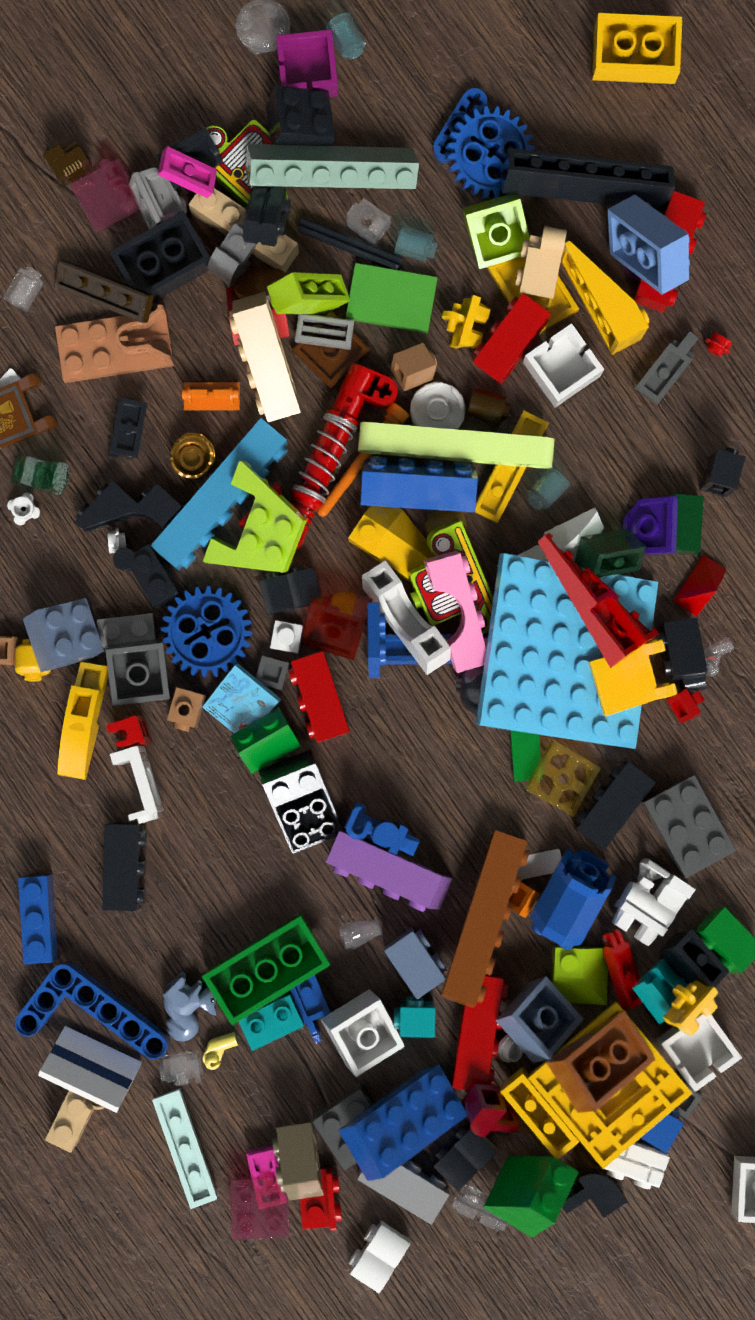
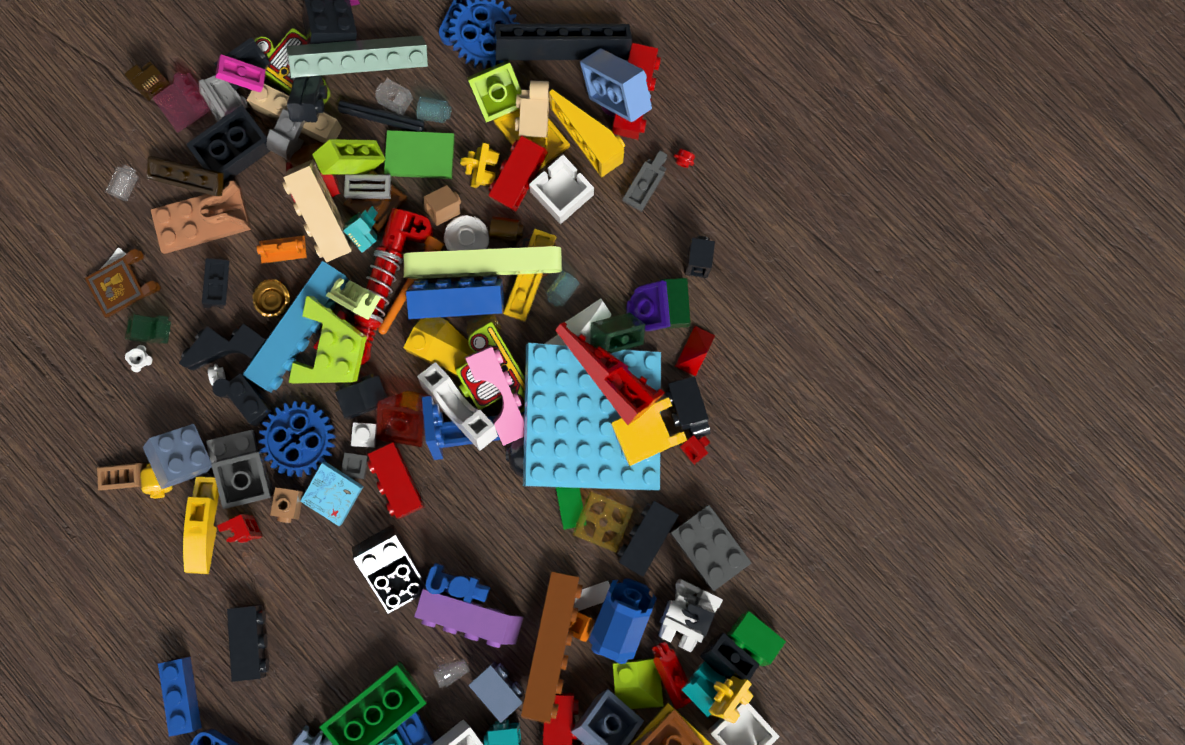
camera: 10 degrees left, 5 degrees down
(145, 781) = (257, 569): white window -> none
(265, 740) = (353, 522): green brick -> none
(296, 469) = (354, 298): none -> yellowish green hinge
(312, 385) = (360, 229): none -> piece
(668, 901) = (700, 611): none -> black hinge
(713, 654) = (712, 405): clear arm -> none

